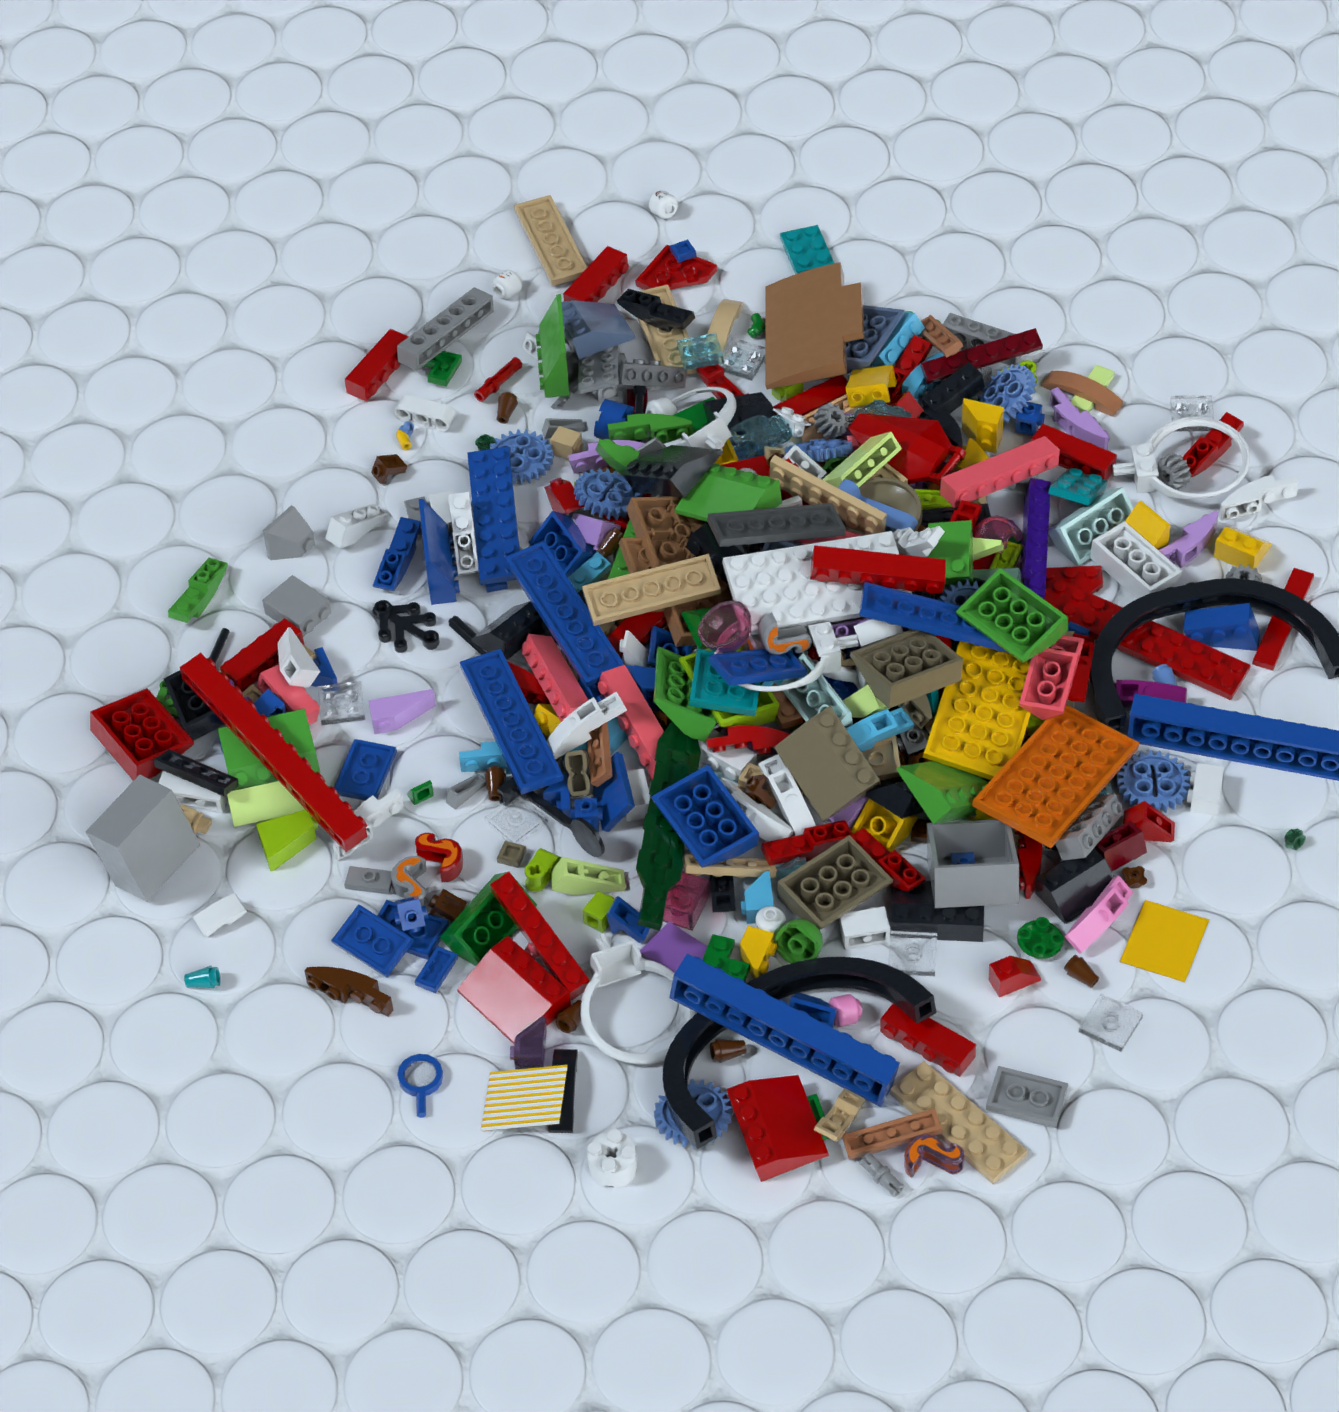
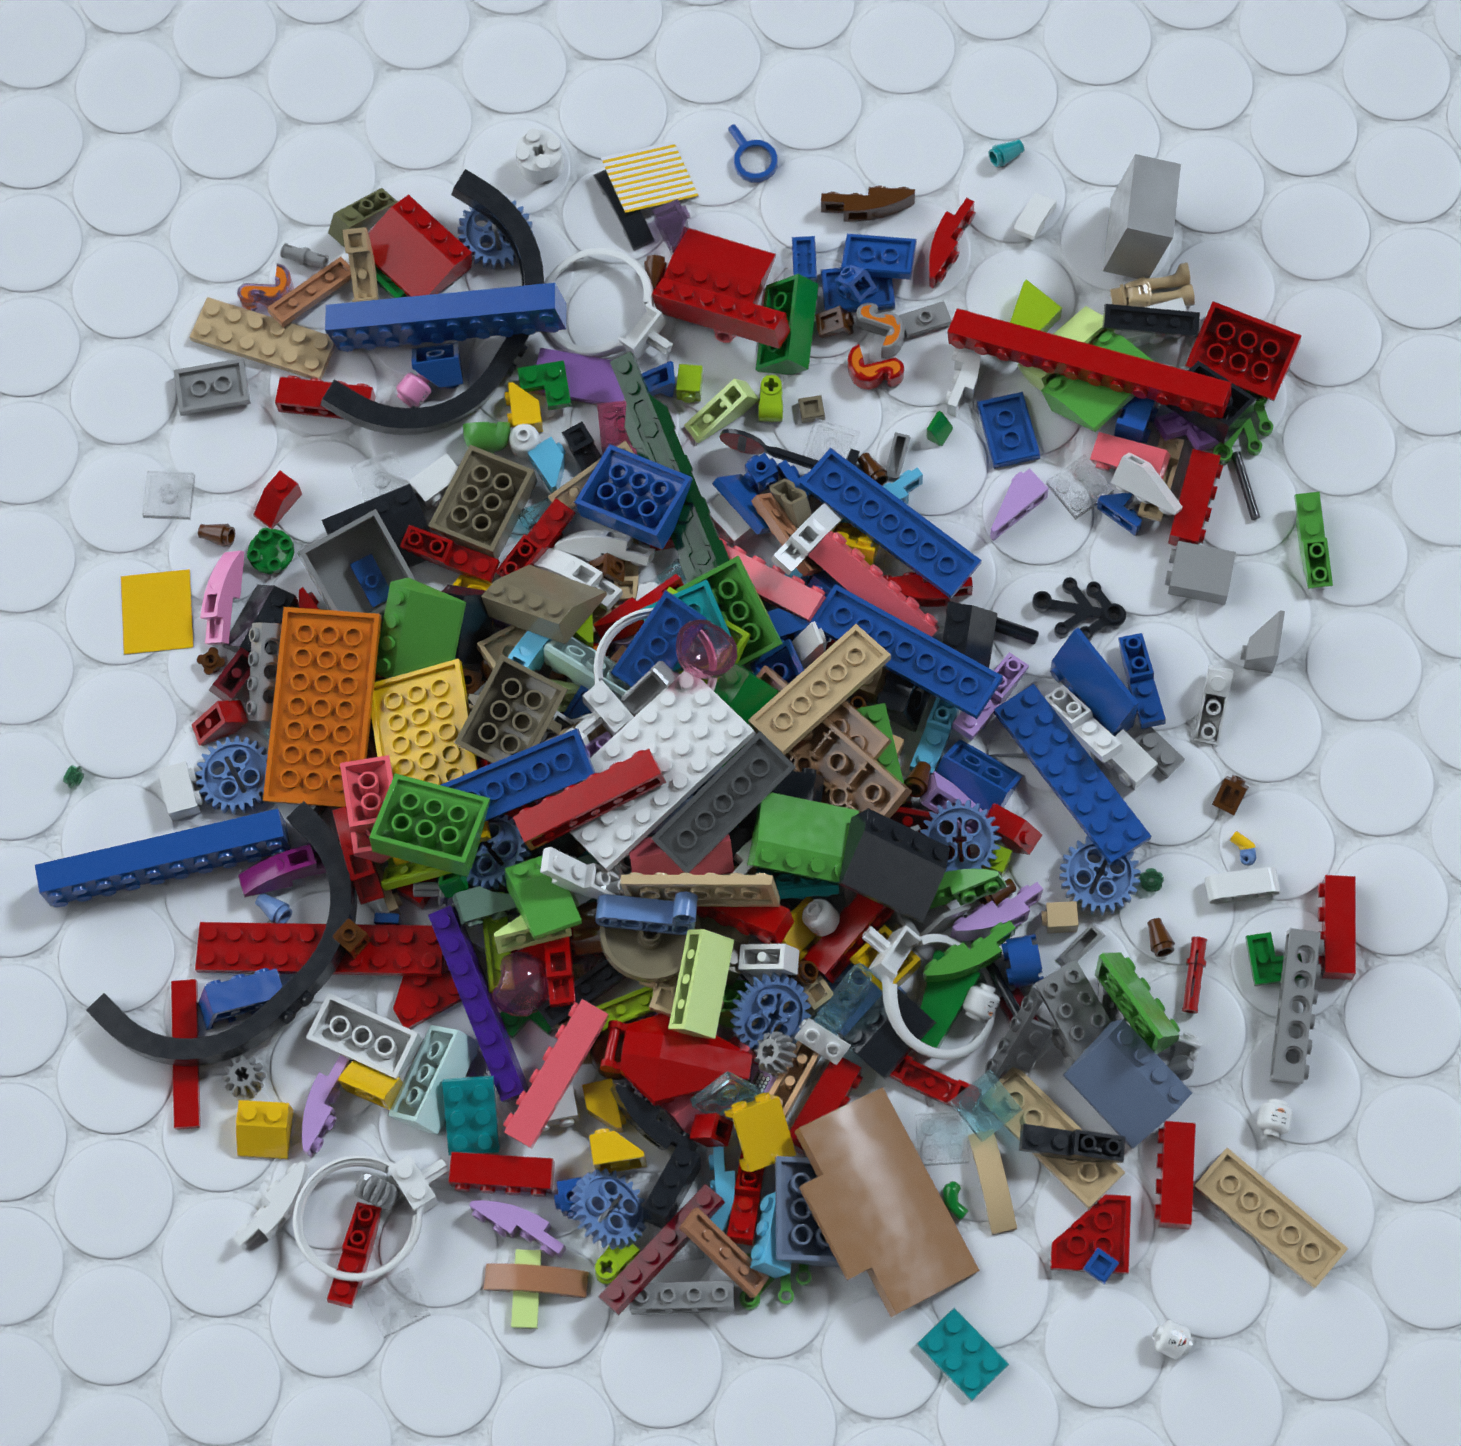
camera: 155 degrees right, 20 degrees up
(314, 924) = (945, 241): none -> red slope
(501, 598) = (1012, 671): none -> lavender slope
(809, 1184) = (361, 214): none -> olive slope
(1111, 608) = (352, 938): none -> reddish brown bracket

